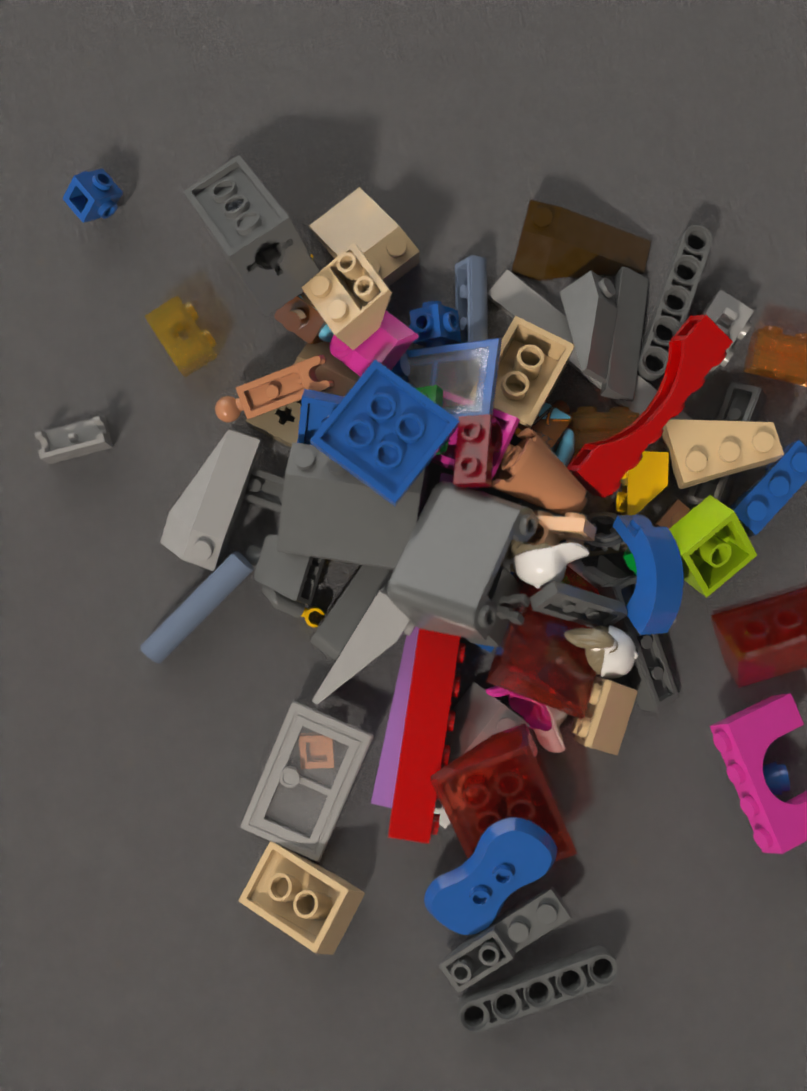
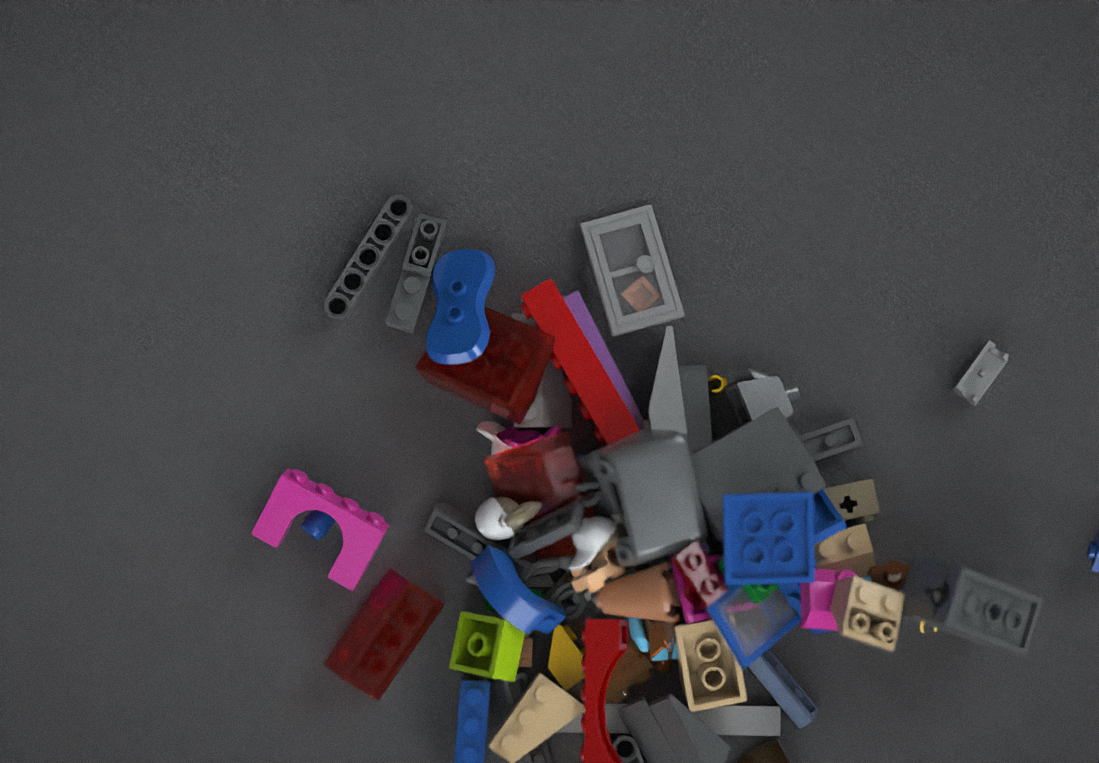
camera: 145 degrees right, 0 degrees up
(167, 323) = (983, 501): clear yellow brick -> none
(197, 607) = (800, 326): sand blue brick -> none
(208, 509) = (848, 398): light grey wedge -> none
(273, 391) = (868, 512): nougat plate -> none
(301, 898) = (572, 191): tan slope -> none
(372, 230) = (897, 677): tan slope -> none
(435, 325) = (797, 651): blue brick -> none
(605, 716) = (465, 474): tan slope -> none

